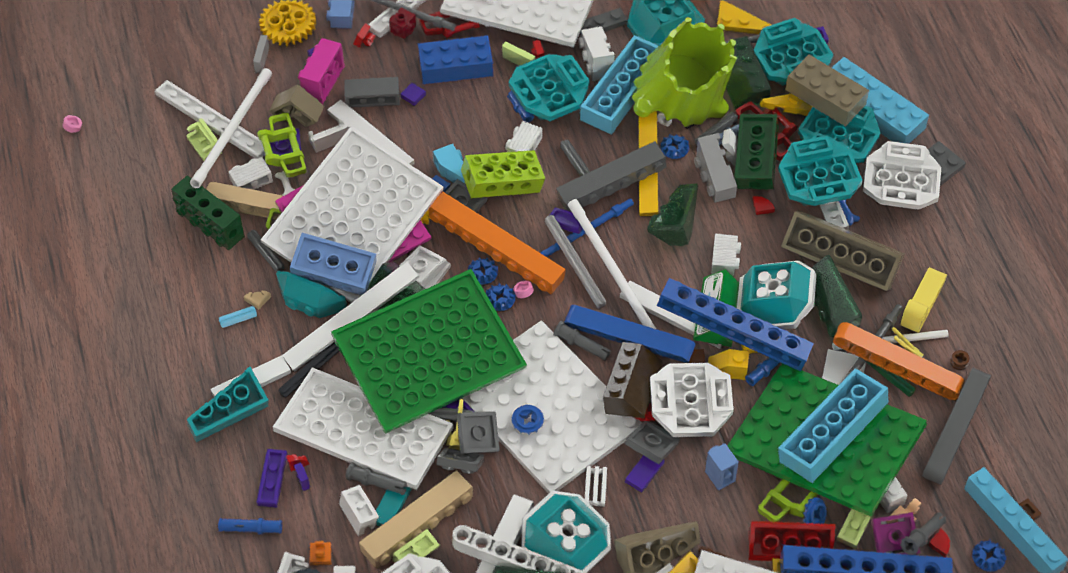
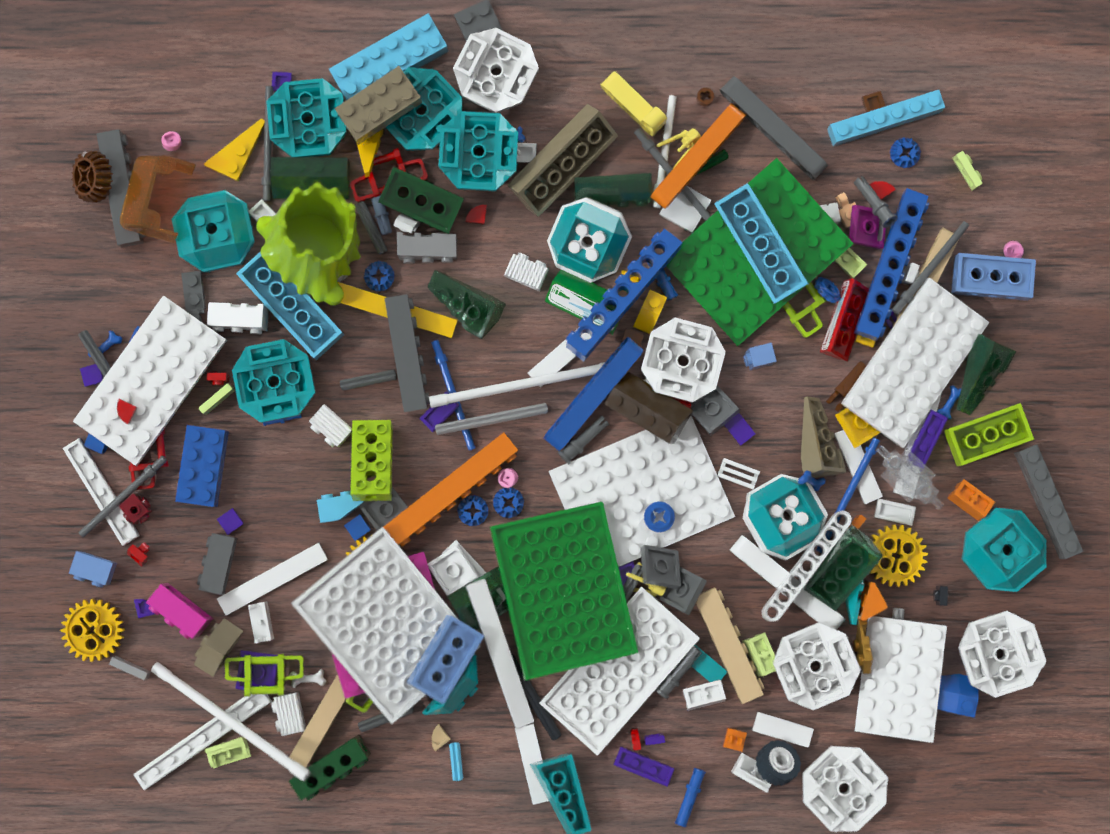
camera: 75 degrees left, 30 degrees up
(612, 540) = (807, 478): none -> blue piece

